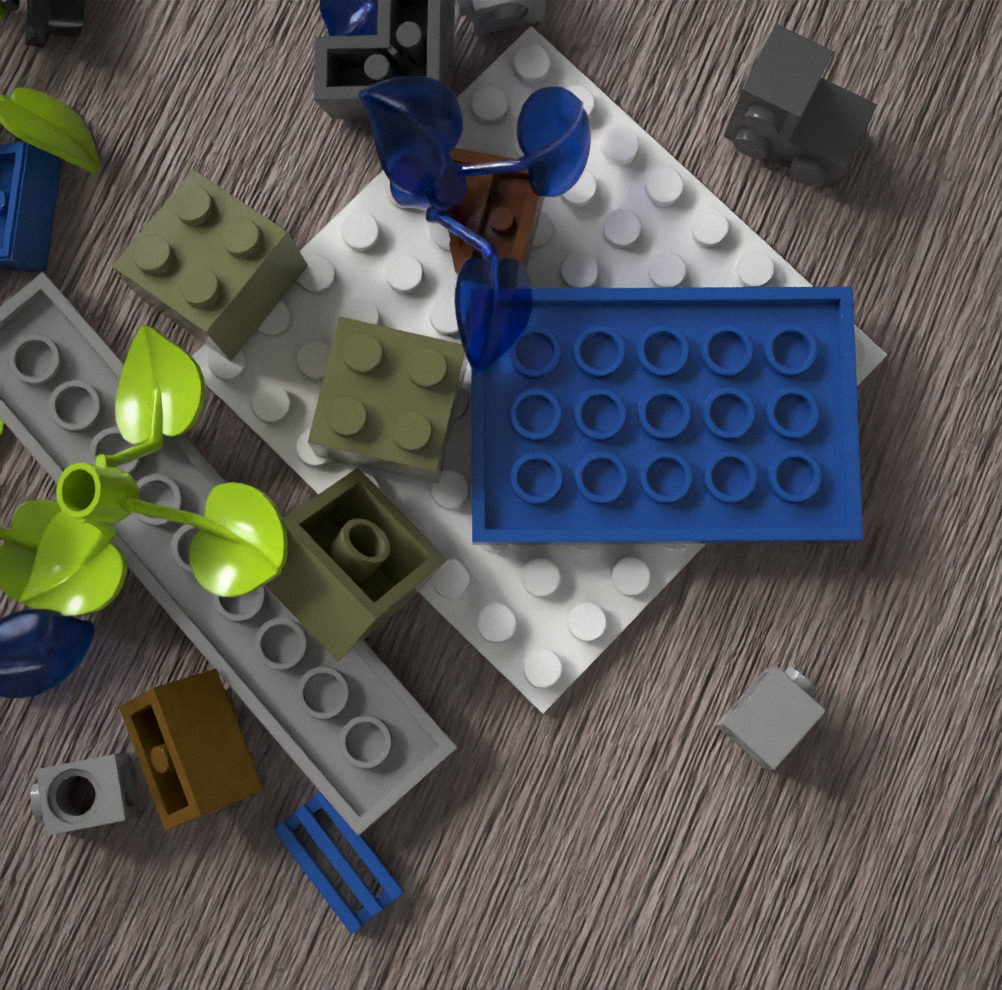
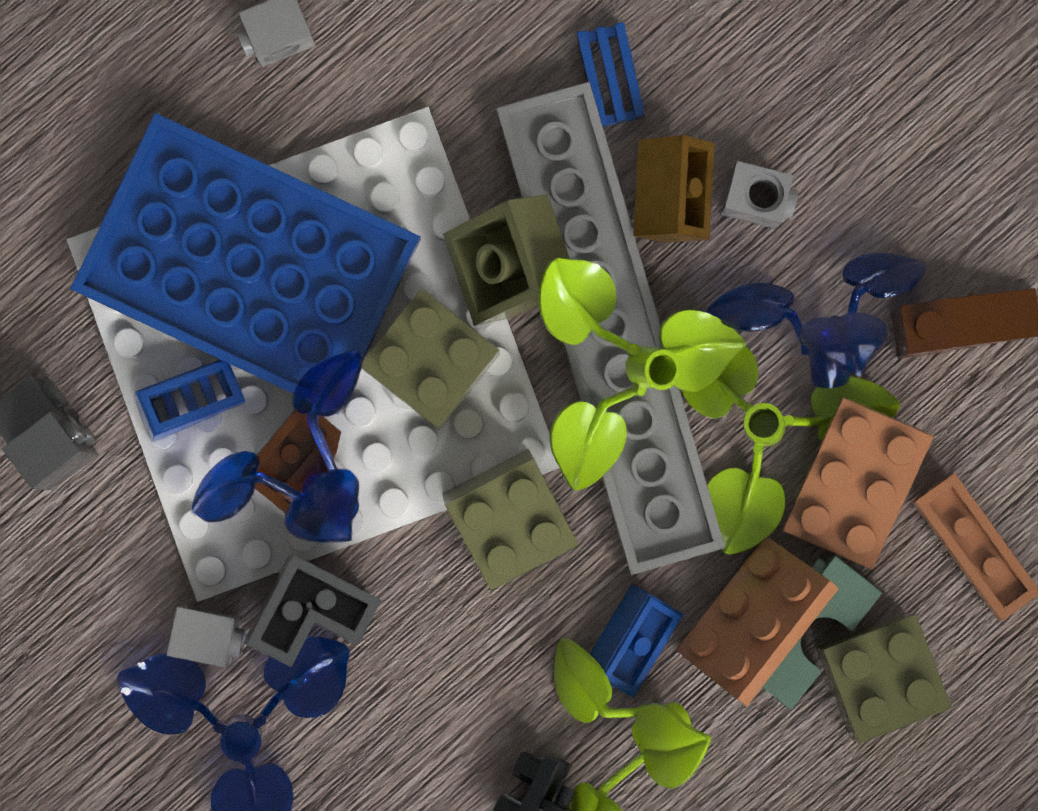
camera: 150 degrees left, 5 degrees up
(684, 191) = (145, 397): none -> blue slope

